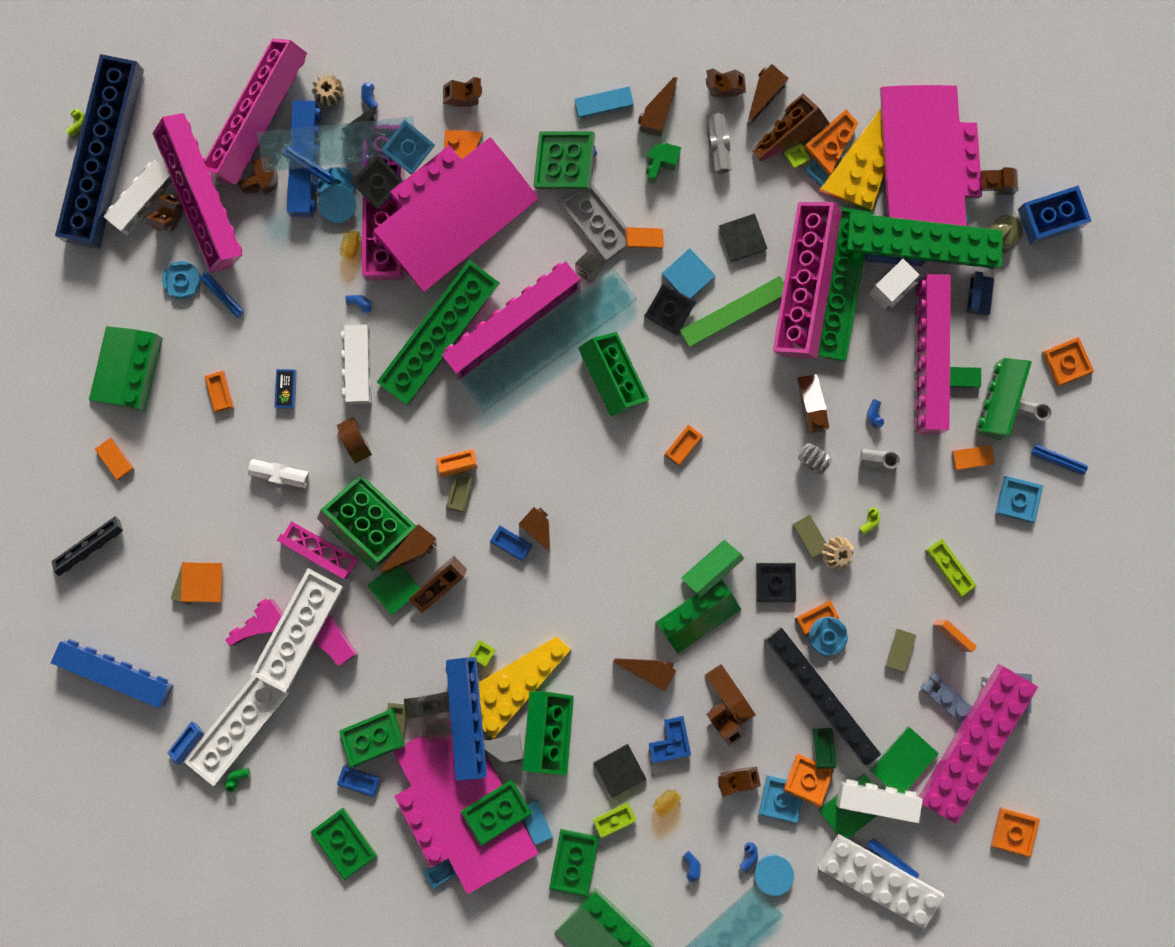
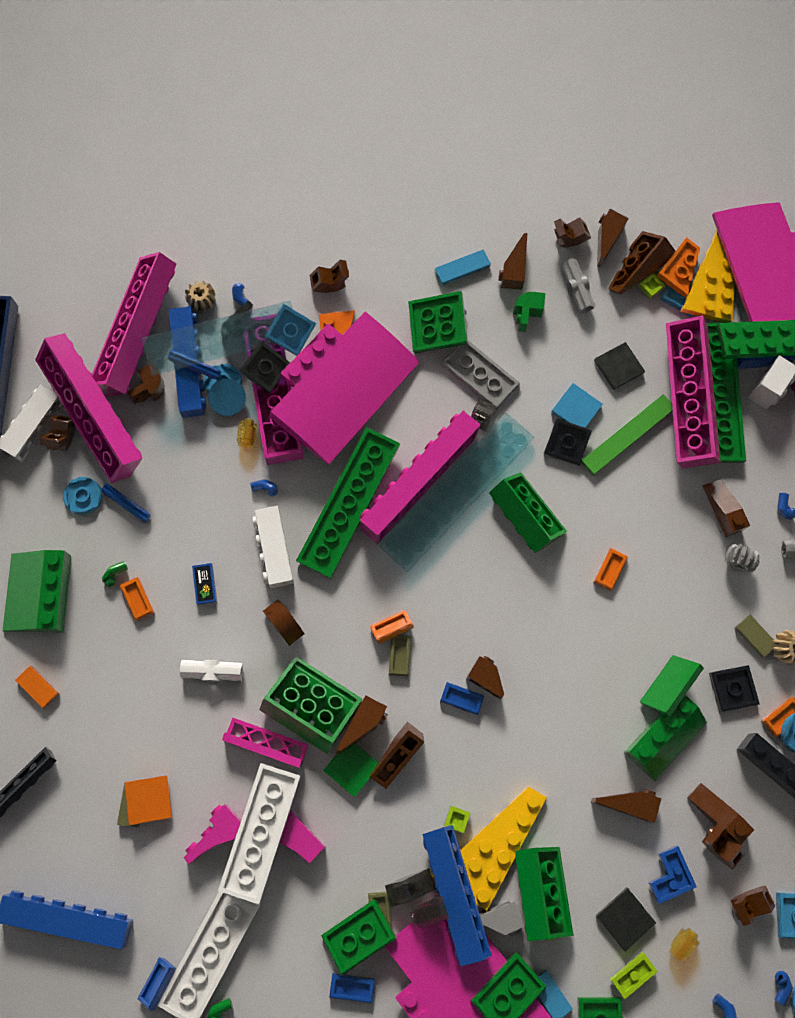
camera: 20 degrees left, 10 degrees down
(198, 361) = (108, 577): none -> green arm
(644, 237) = (528, 380): orange tile -> none

